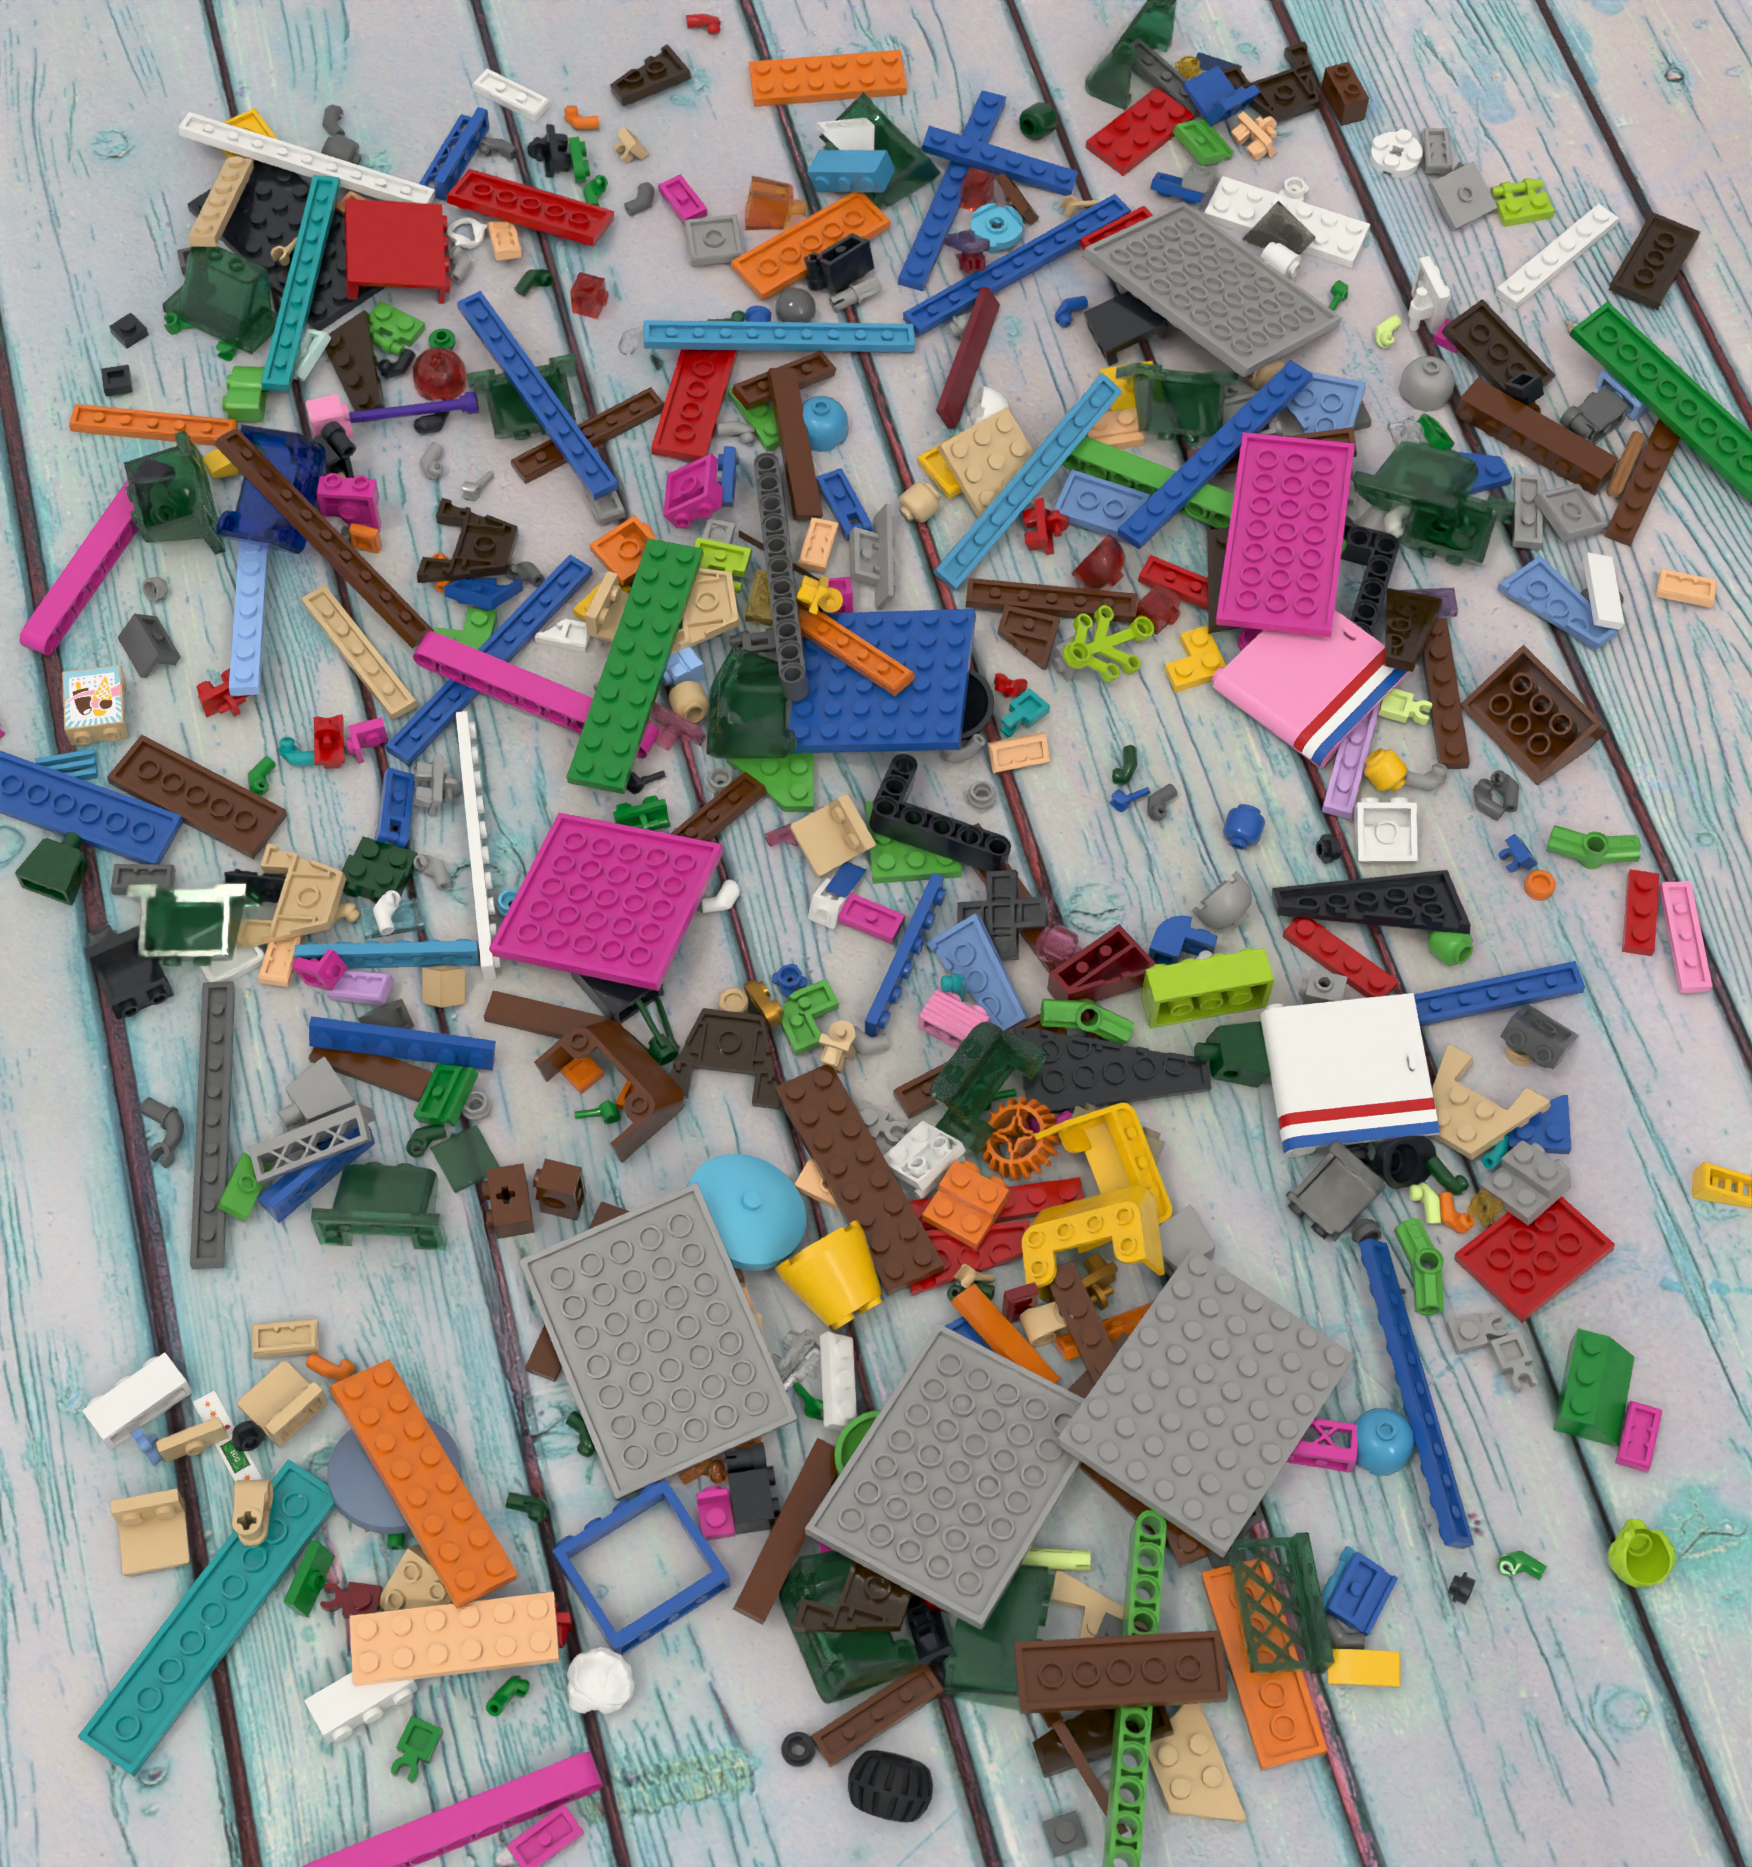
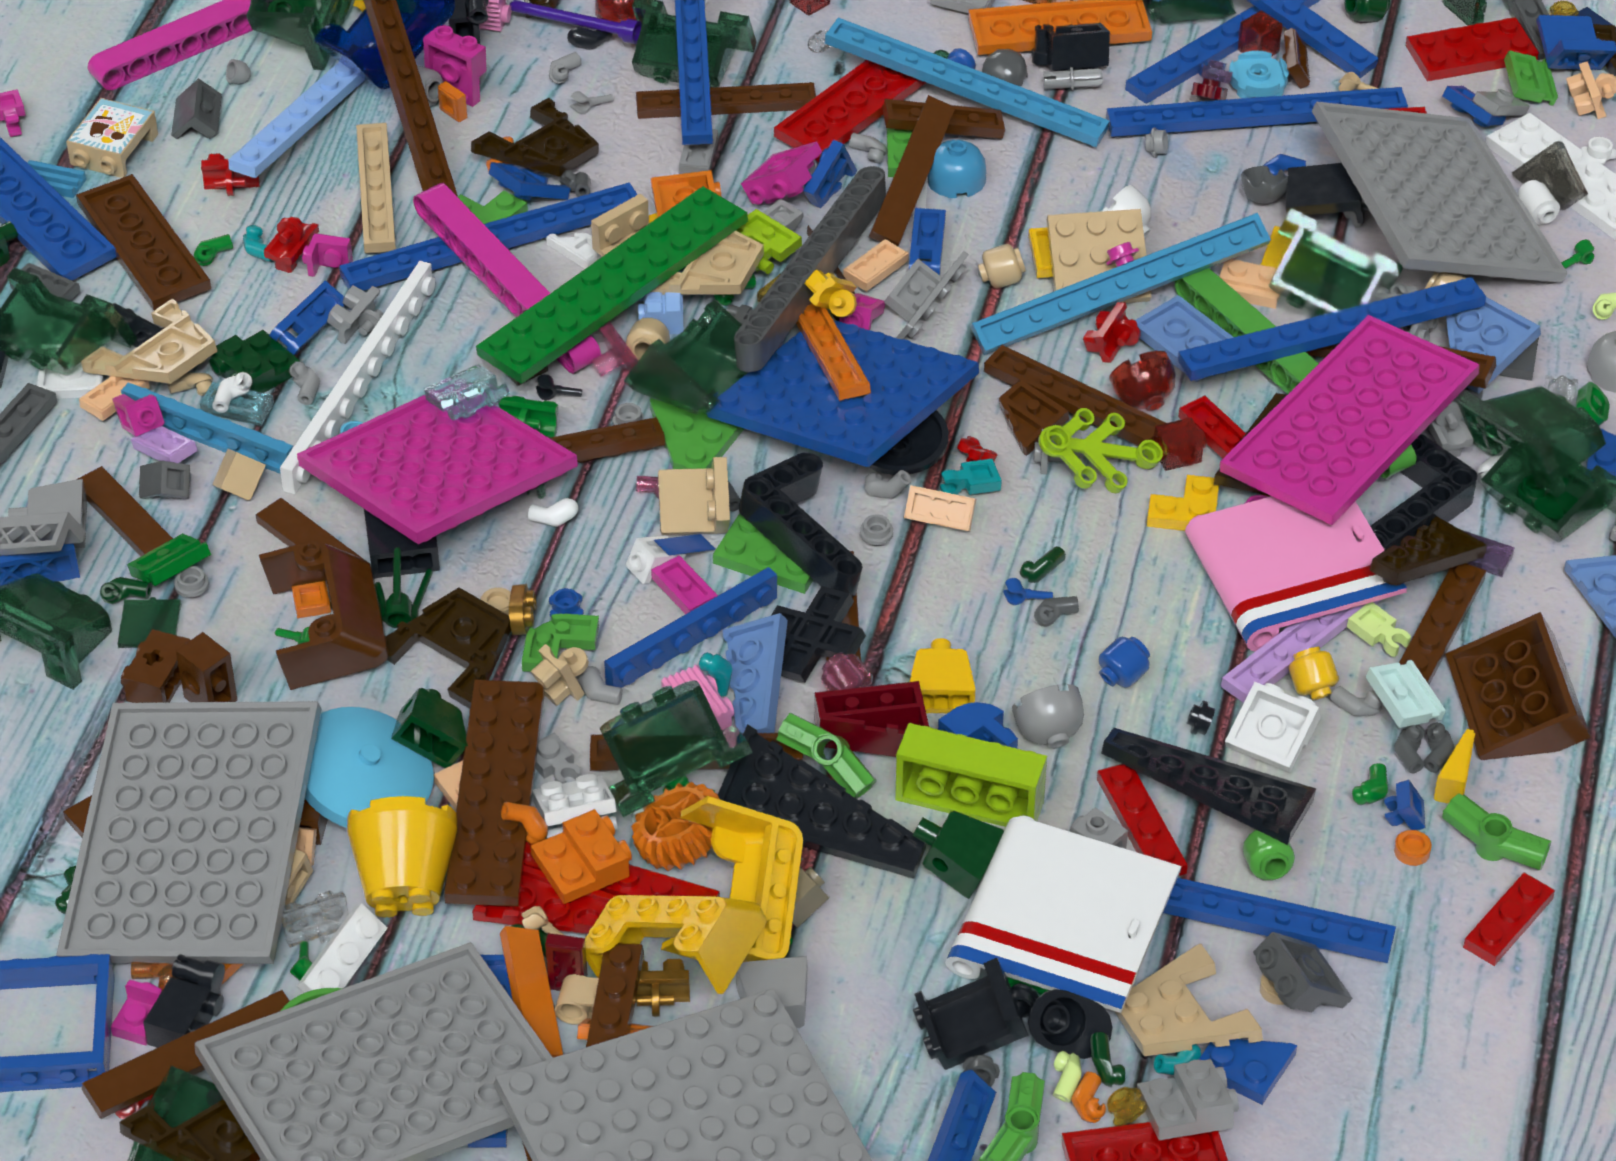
camera: 30 degrees right, 15 degrees down
(401, 1043) = (161, 500): blue plate -> none
(580, 820) = (466, 392): none -> clear light blue plate
(771, 1146) = (431, 727): none -> dark green torso
(909, 1192) = (530, 818): none -> orange arm
(968, 358) = (1148, 164): dark red tile -> none
(1018, 456) = (1121, 254): none -> dark pink plate
(1070, 334) = (1262, 185): none -> dark grey hair
(1122, 904) = (943, 677): none -> yellow torso
(1464, 758) = (1405, 693): none -> light aqua plate
(1485, 846) = (1374, 788): none -> green arm
(1535, 806) = (1454, 774): none -> yellow slope
(1685, 937) = (1541, 960): bright pink plate -> none

